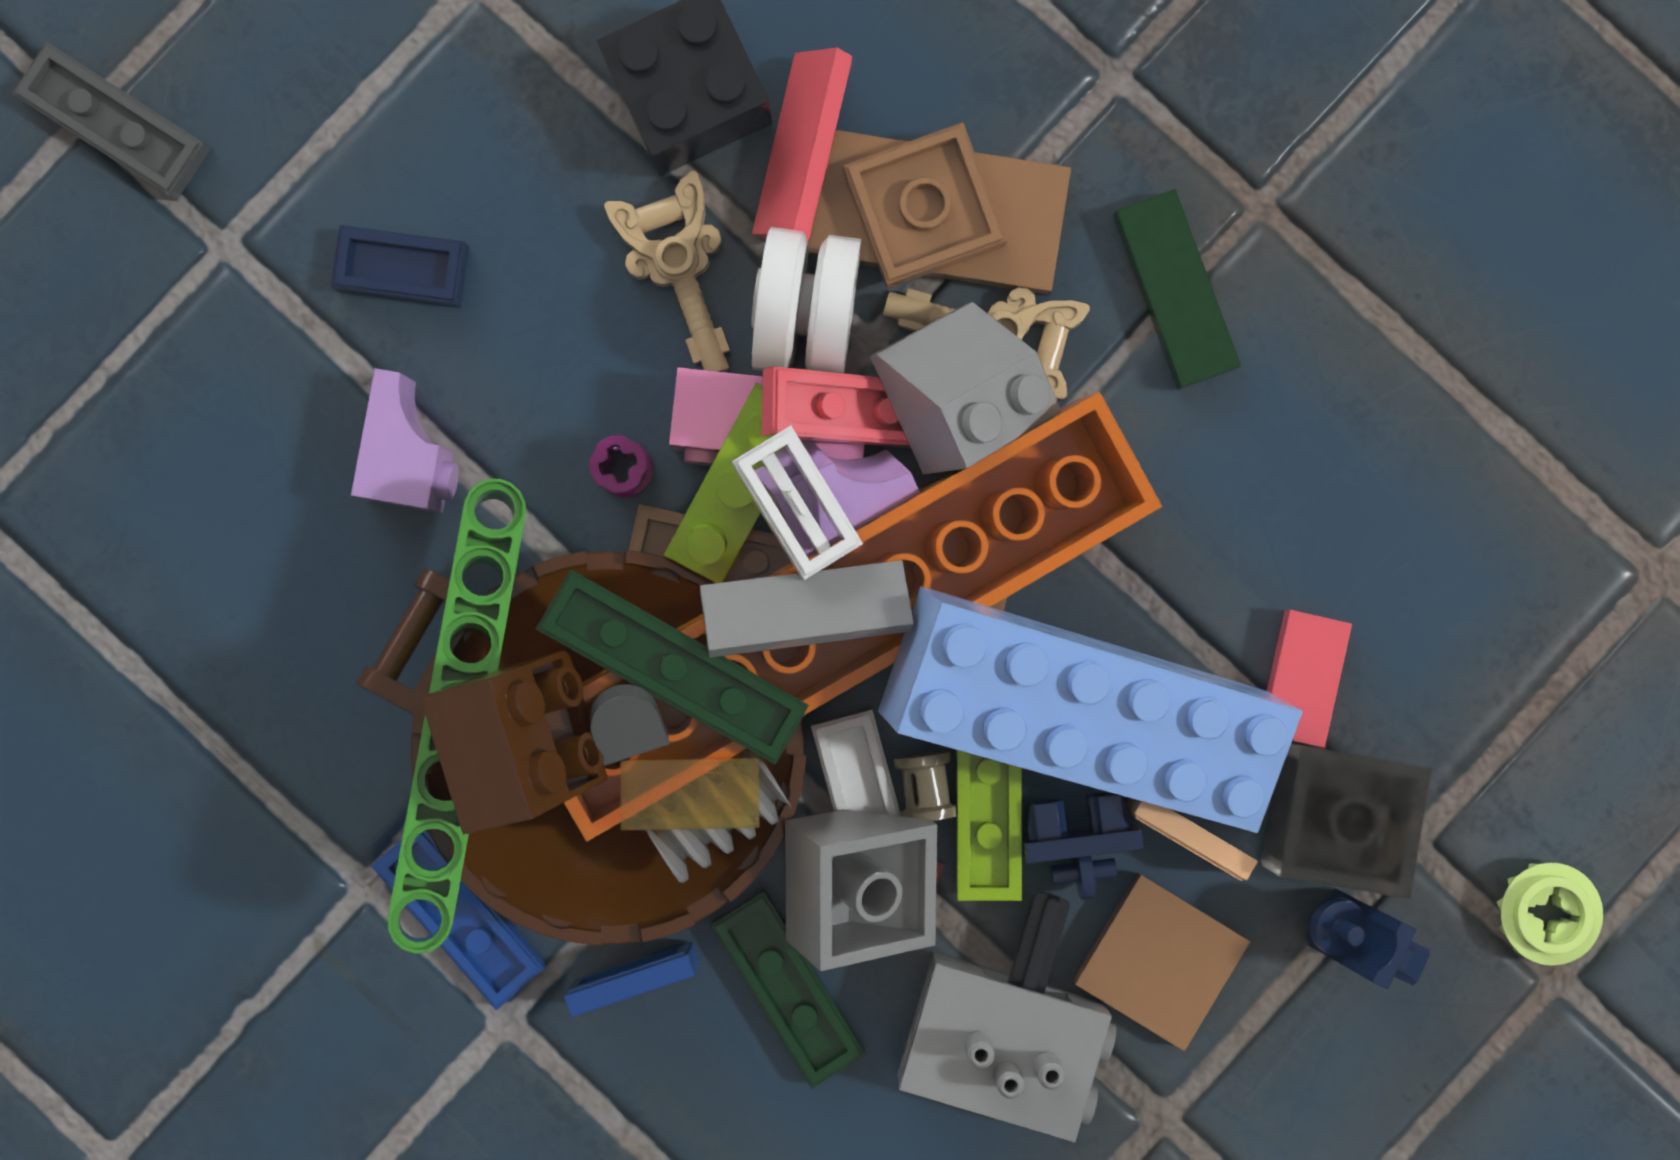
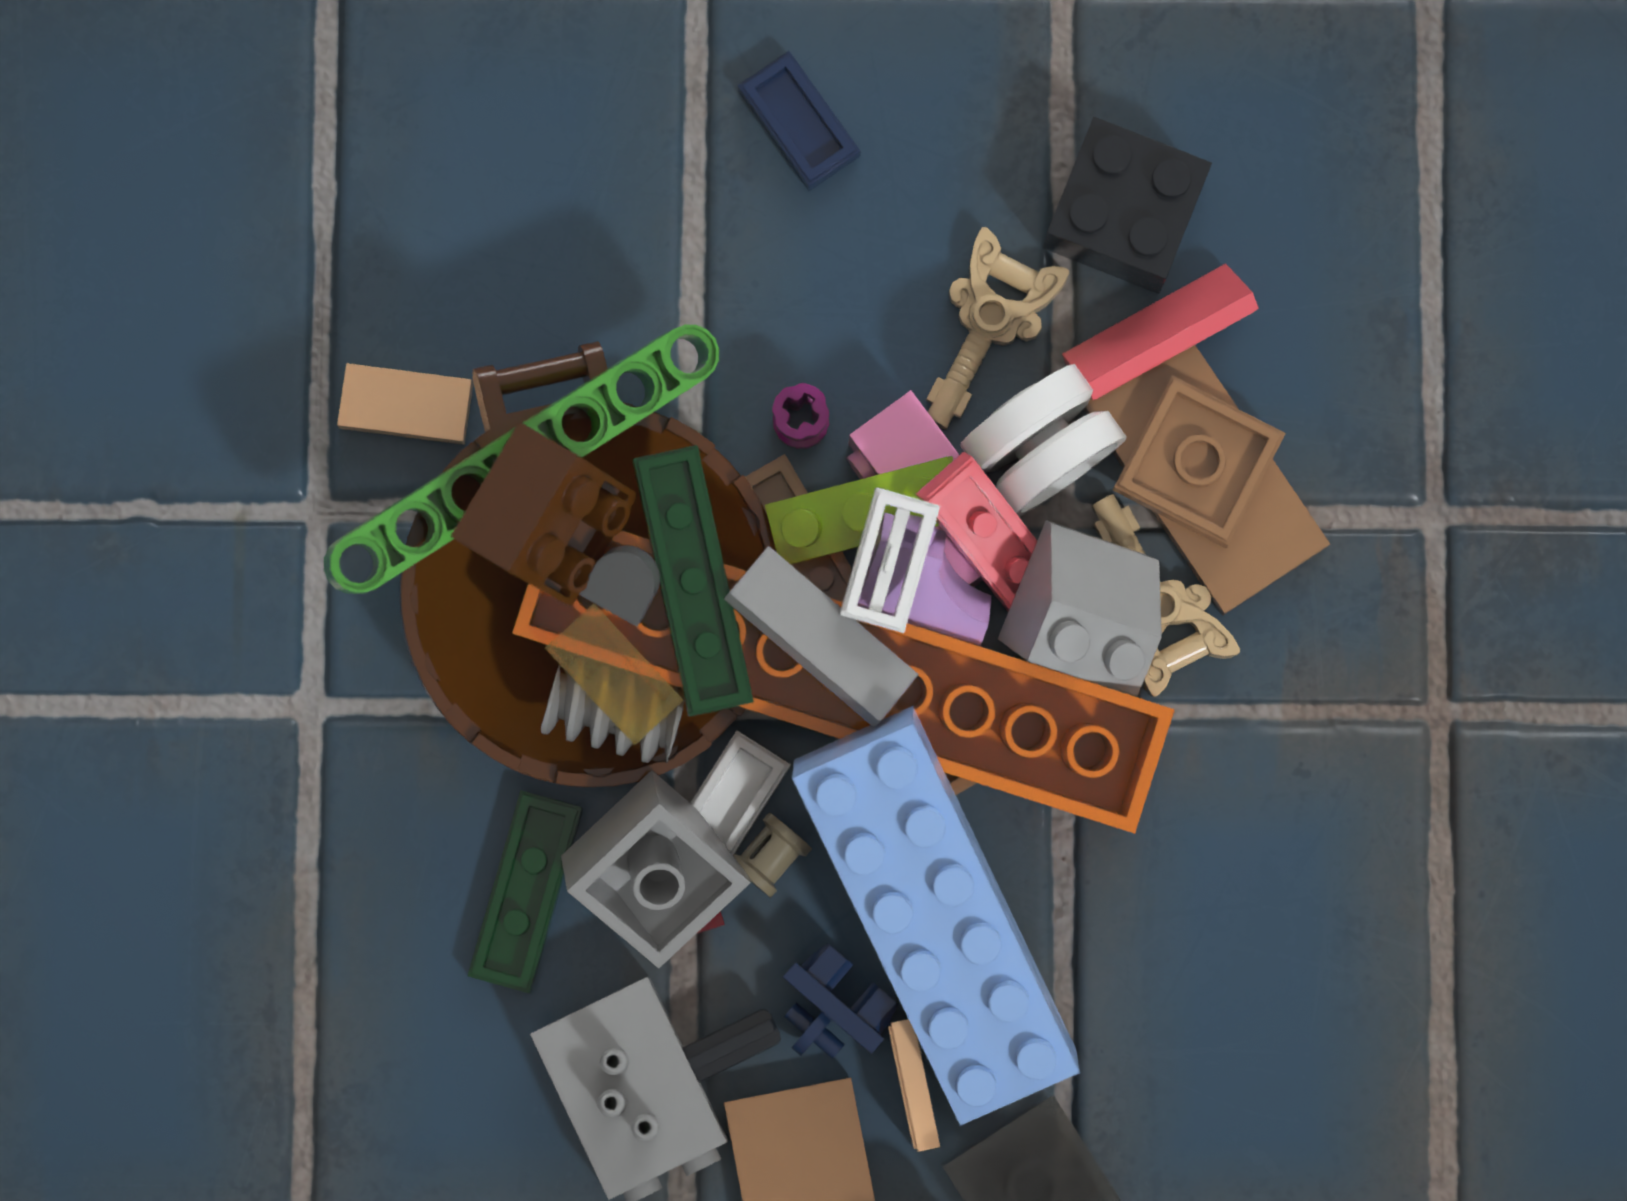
camera: 50 degrees right, 5 degrees down
(343, 751) = (405, 403): none -> light nougat tile
(395, 454) = (657, 248): lavender arch -> none
(480, 941) = (355, 624): blue tile -> none
(632, 978) = (431, 766): blue tile -> none
(988, 829) = (784, 927): lime plate -> none
(1176, 289) = (1313, 706): dark green tile -> none
(1309, 670) = (1117, 1068): coral tile -> none

